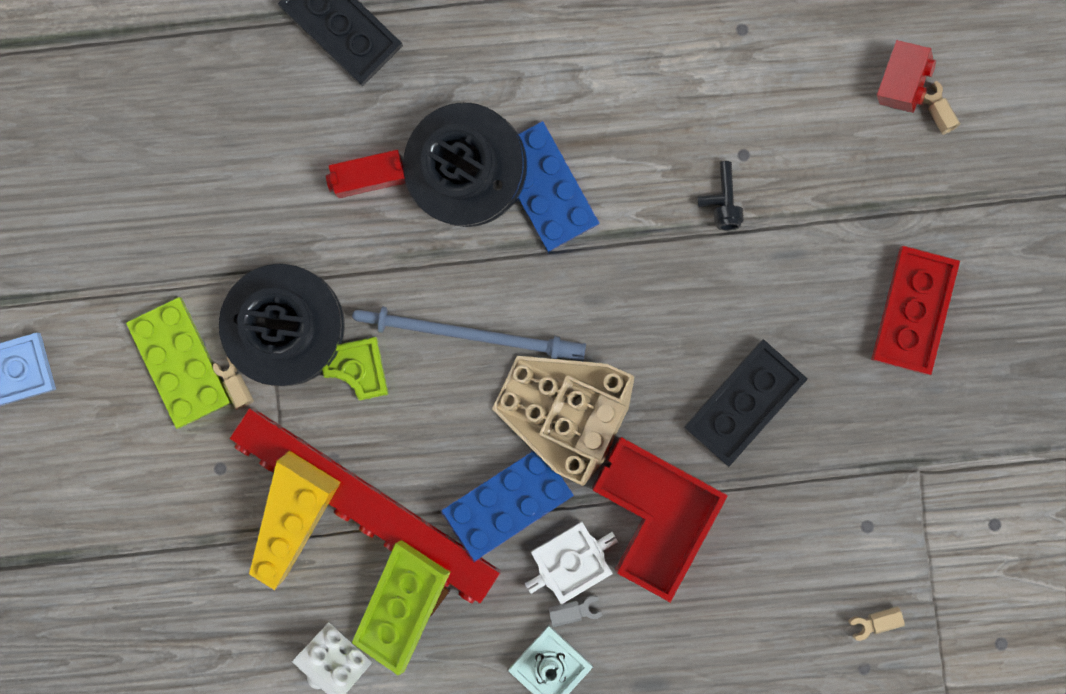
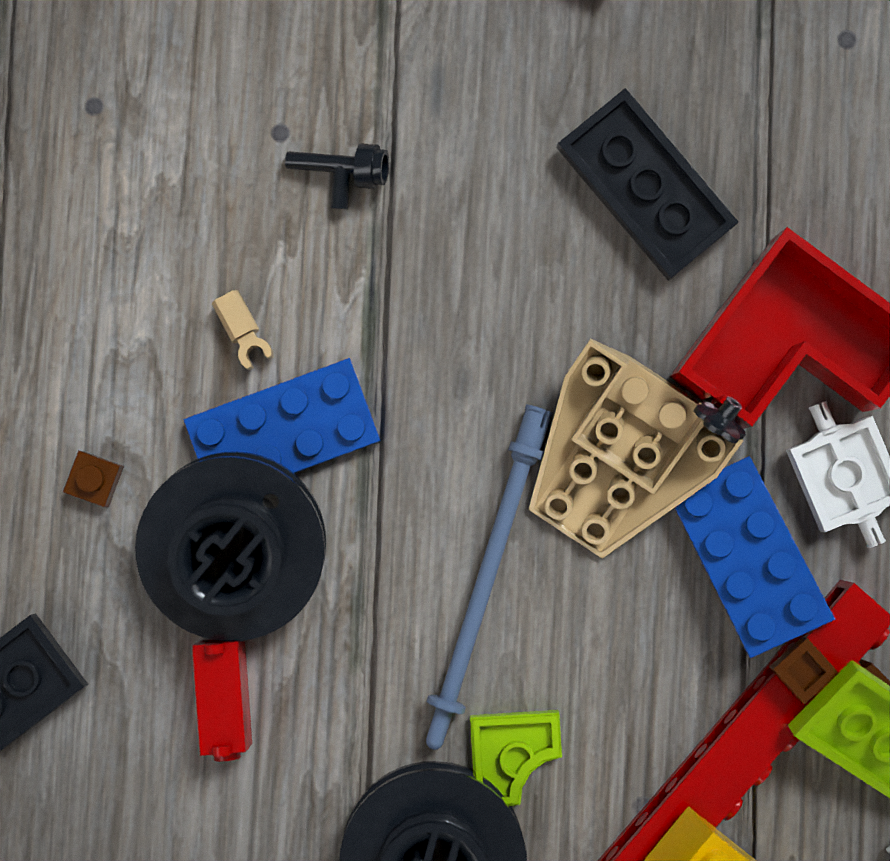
camera: 85 degrees left, 0 degrees up
(438, 545) = (803, 670): none -> reddish brown plate
(495, 69) = (93, 479): none -> reddish brown plate
(593, 468) = (721, 419): none -> black plant
(609, 149) = (240, 326): none -> tan bar

